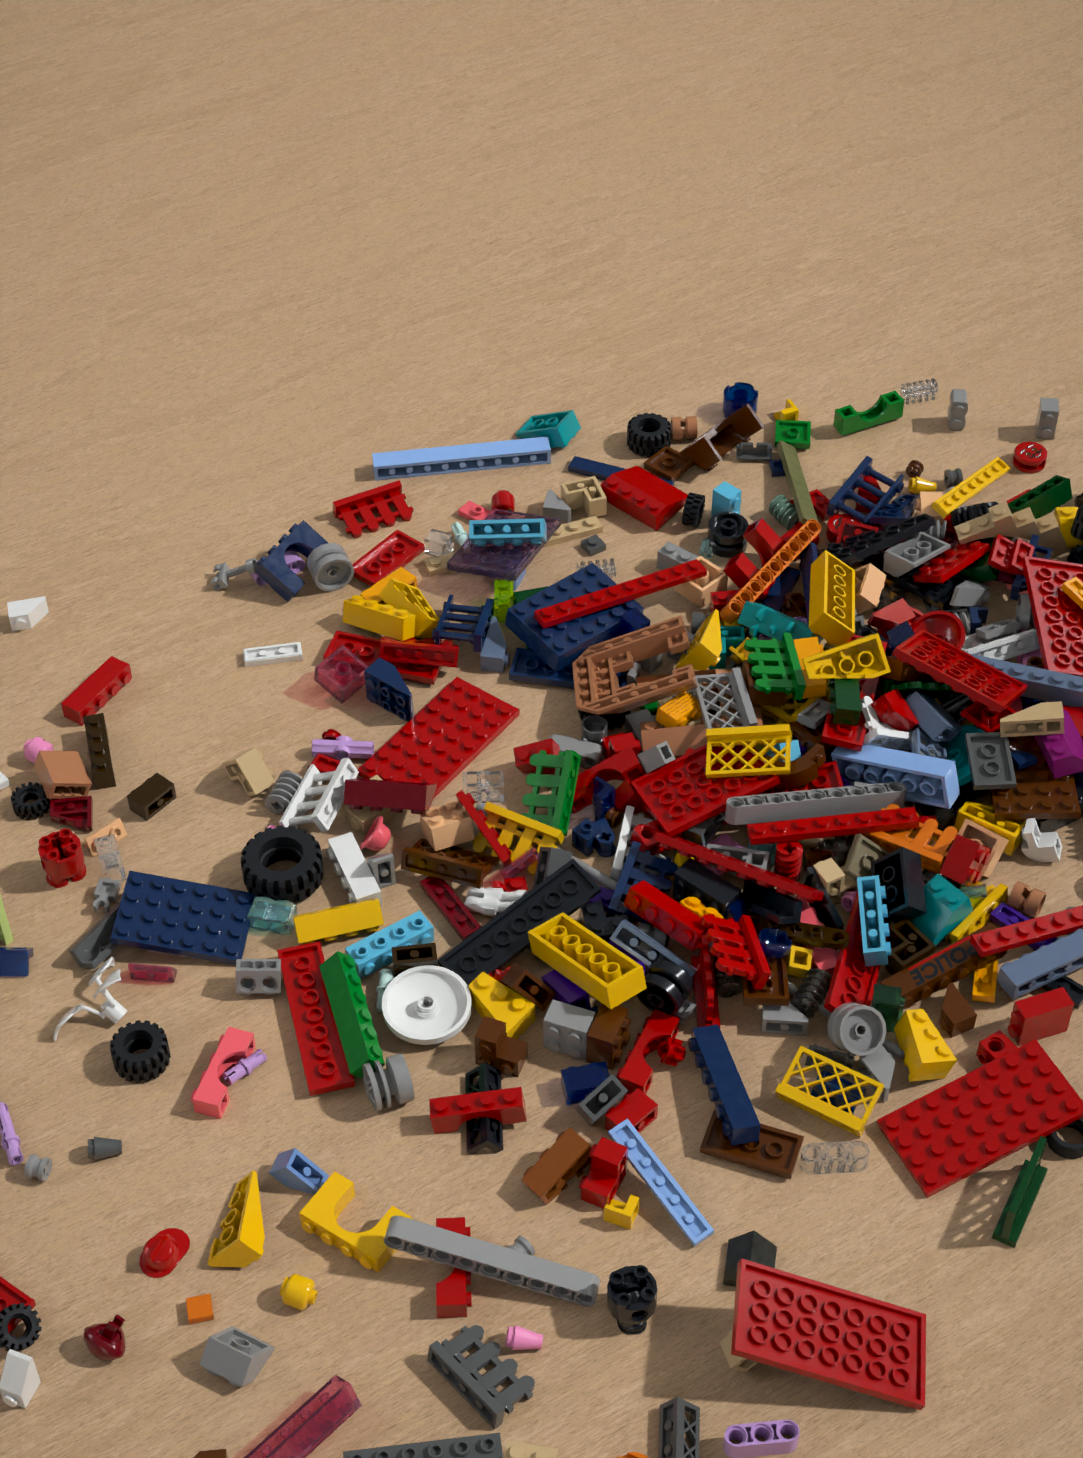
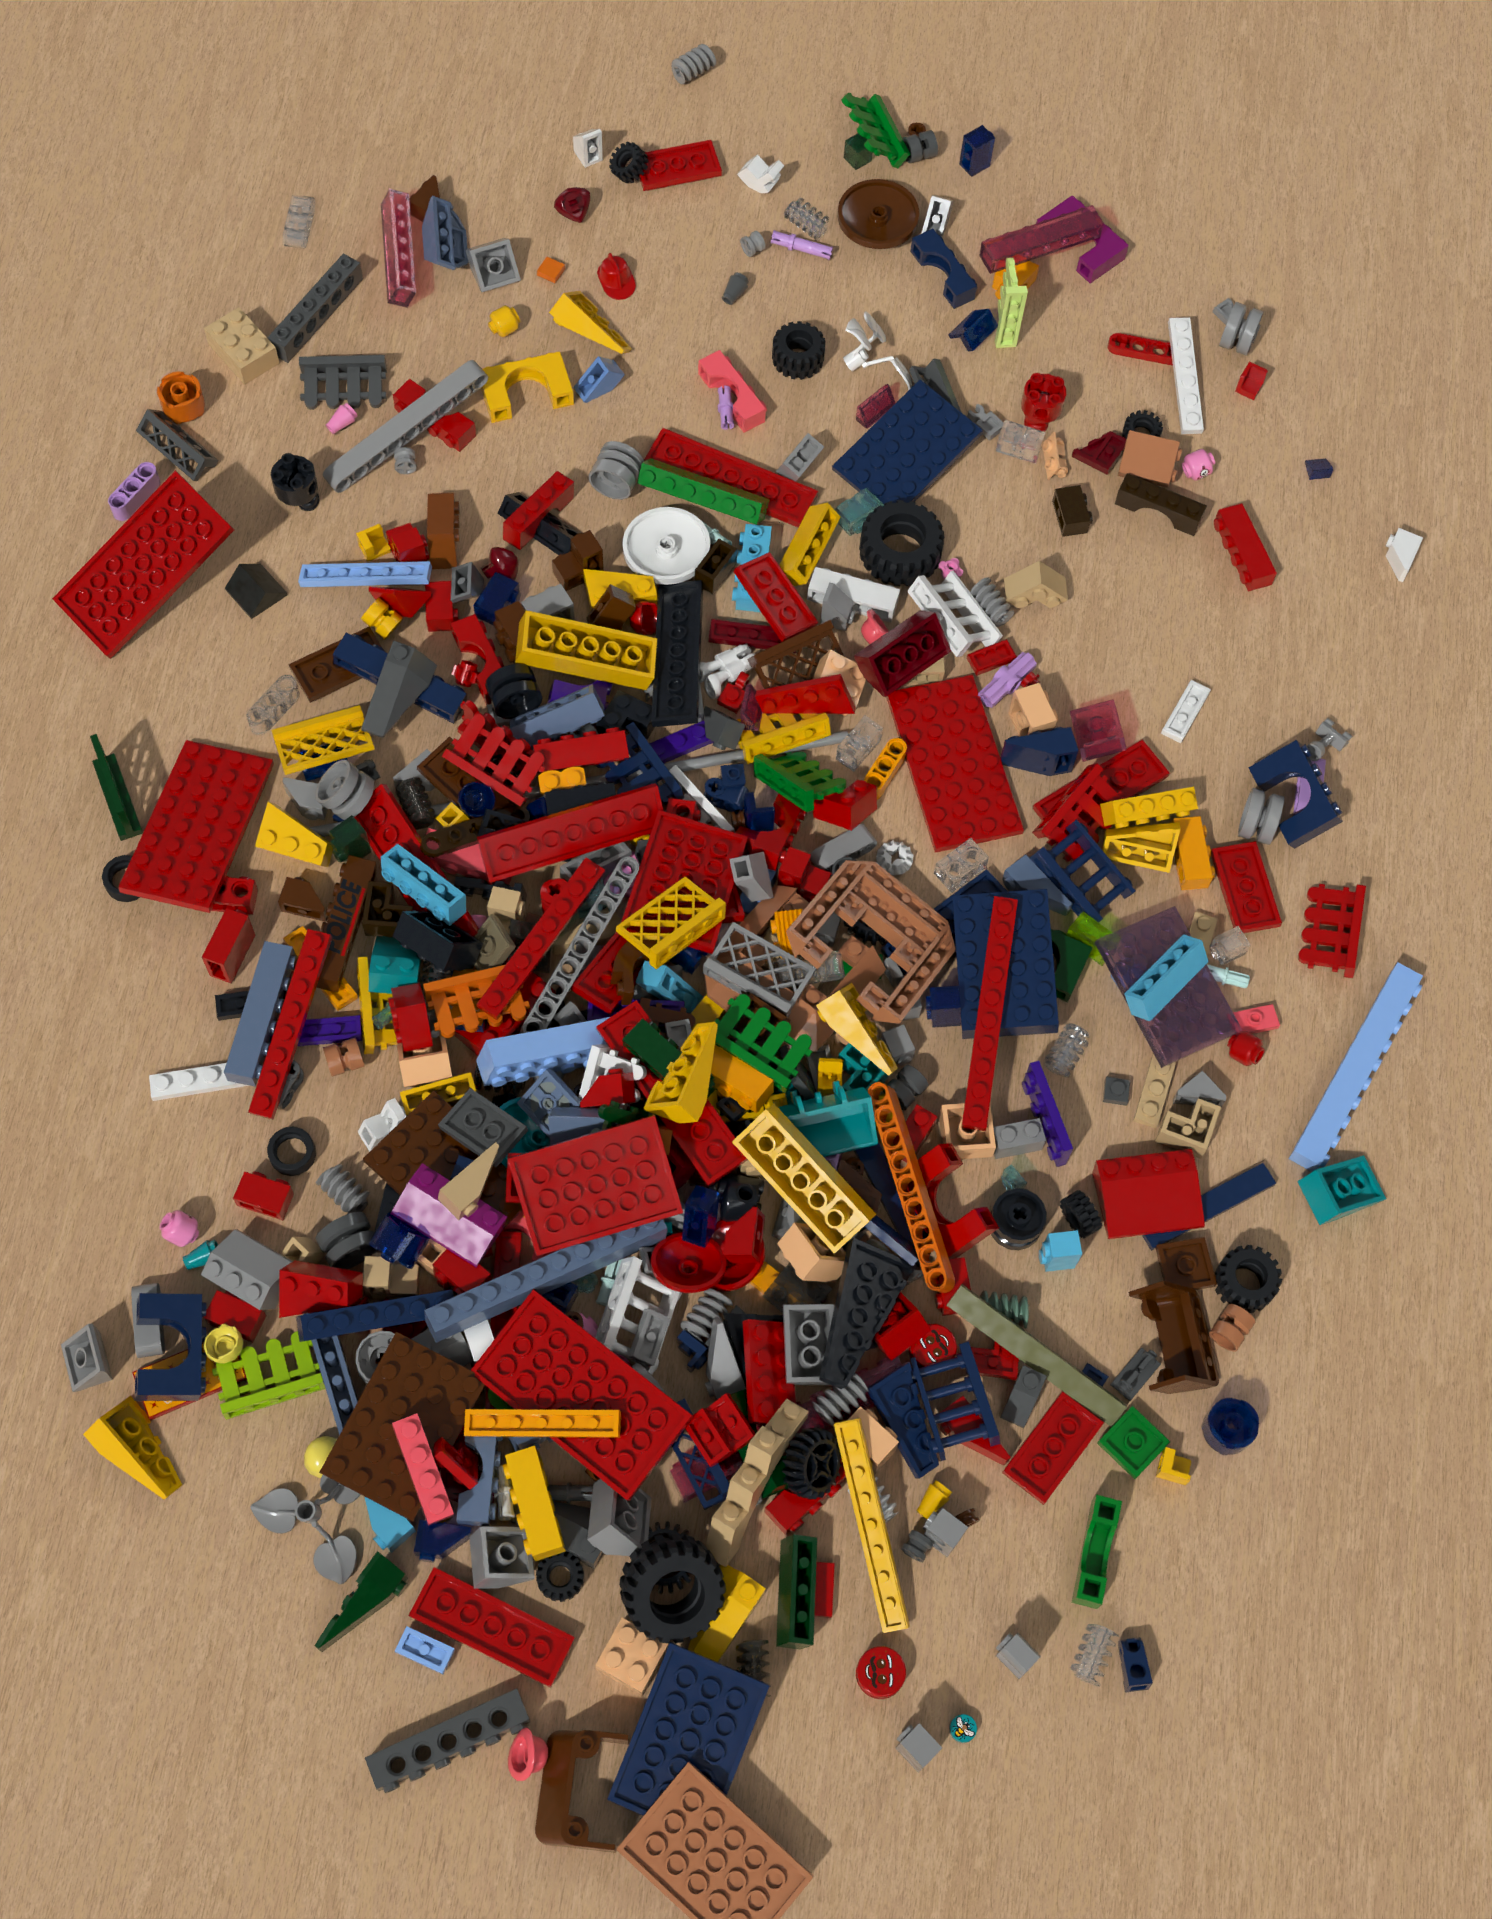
camera: 125 degrees right, 20 degrees up
(248, 1413) = (444, 235): none -> sand blue wedge
(366, 710) = (1032, 711): none -> light nougat brick
(409, 902) = (775, 596): none -> red tile
(488, 762) = (886, 760): none -> light orange beam
(519, 688) = (958, 862): none -> clear brick
(542, 732) = (899, 865): none -> white gear
(548, 1099) = (502, 562): none -> dark red piece
(645, 555) = (1045, 1108): none -> dark purple plate
(657, 1132) = (402, 600): none -> red slope
(686, 1138) = (381, 618): none -> yellow wheel
(735, 1066) = (401, 681): none -> dark grey wedge
(822, 480) = (1023, 1396): none -> dark grey slope
(831, 458) = (1053, 1448): none -> red plate
(902, 376) = (1134, 1665): none -> dark blue leg
(936, 463) = (944, 1531): none -> light grey brick
(1012, 419) = (963, 1728): none -> tile

